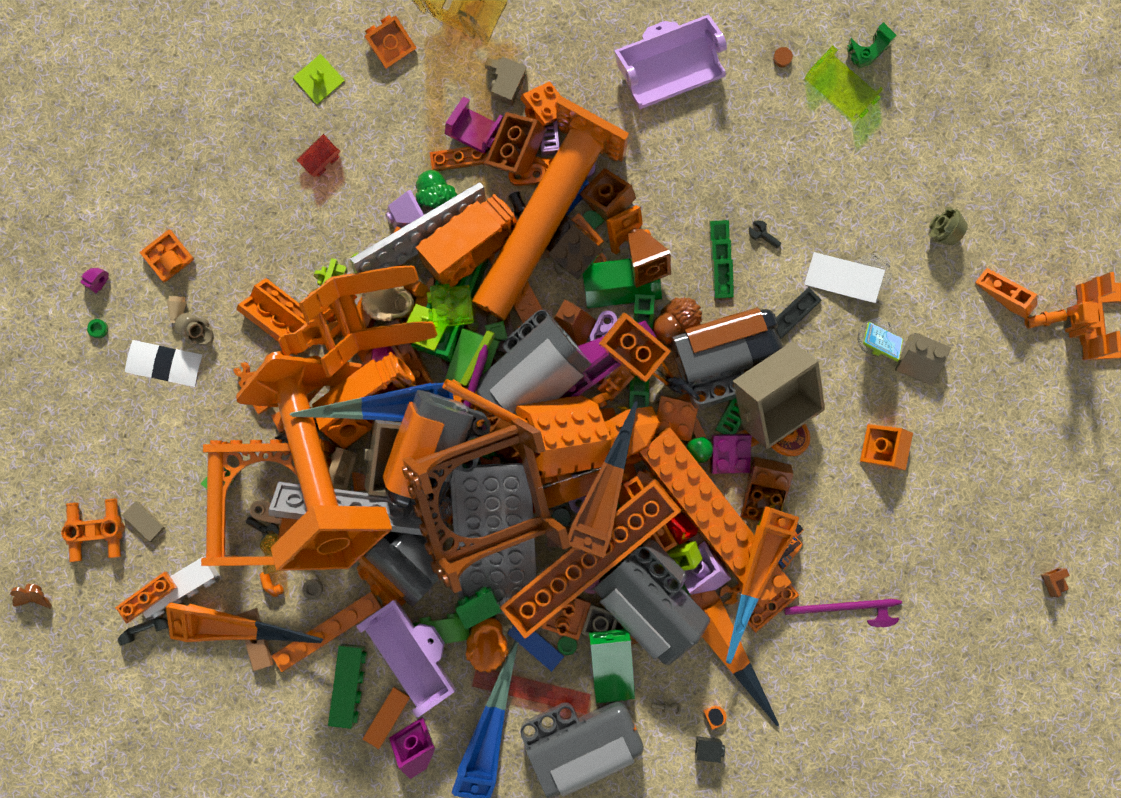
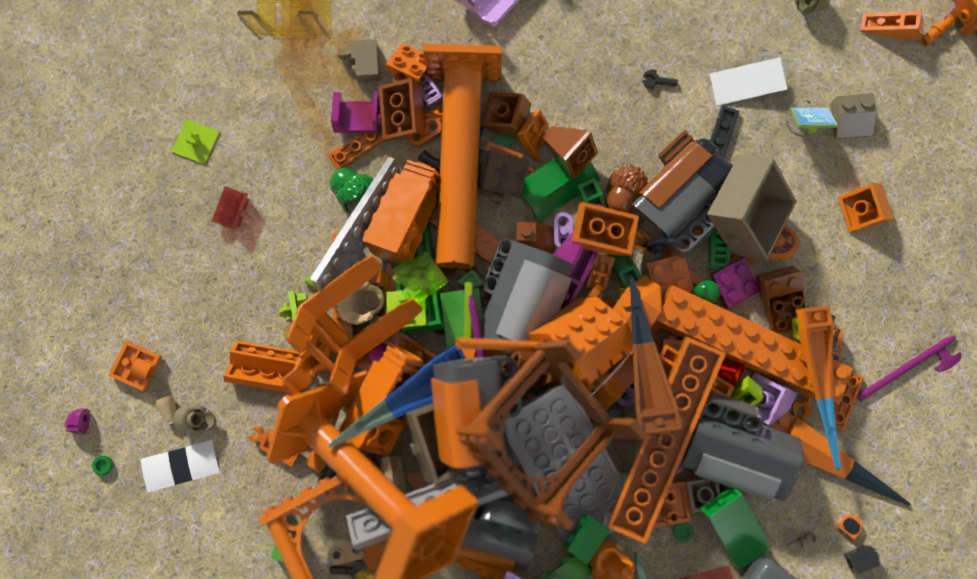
camera: 20 degrees left, 5 degrees down
(389, 41) = (242, 77): orange plate -> none
(403, 210) = (332, 216): lavender slope -> none
(538, 647) = (657, 547): blue tile -> none
(721, 259) = (633, 119): green slope -> none
(762, 302) = (689, 138): none -> dark orange tile

